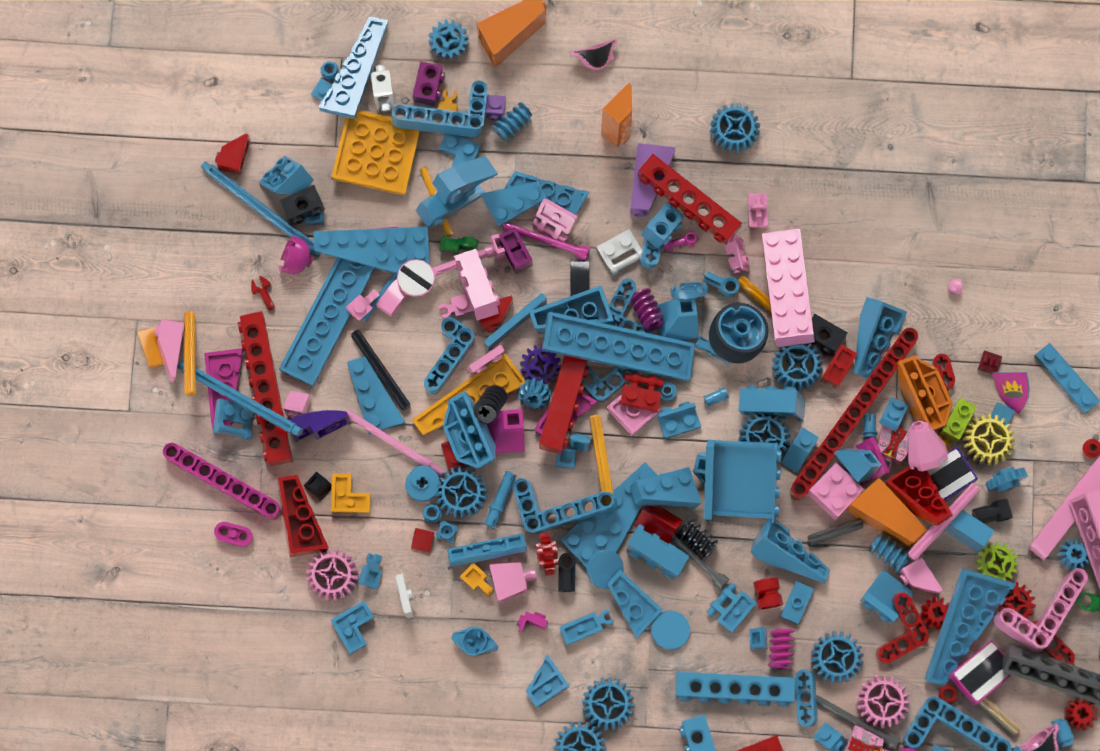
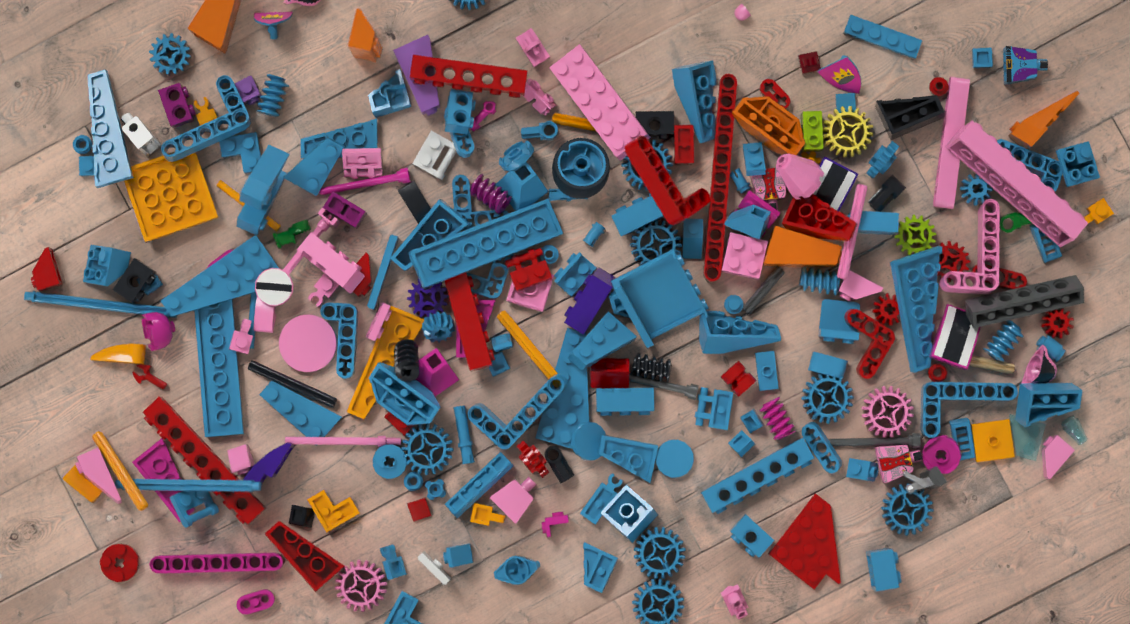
camera: 30 degrees left, 10 degrees up
(148, 439) = (130, 564): none -> red plate
(257, 262) = (122, 354): none -> light orange piece
(414, 343) = (307, 343): none -> bright pink tile
(431, 598) = (458, 555): none -> dark azure slope
(547, 67) = (272, 19): none -> shield
(602, 653) = (629, 513): none -> dark azure slope
(611, 181) = (390, 96): none -> dark azure slope
(677, 449) = (589, 300): none -> dark purple wedge
(737, 651) = (741, 443): none -> dark azure plate
(799, 384) = (661, 185): none -> red beam
(802, 528) = (733, 304): none -> dark azure plate
(855, 628) = (827, 365): none -> dark azure beam
(1023, 700) = (1004, 341): none -> dark azure piece
(1051, 456) = (908, 115): none -> black wedge

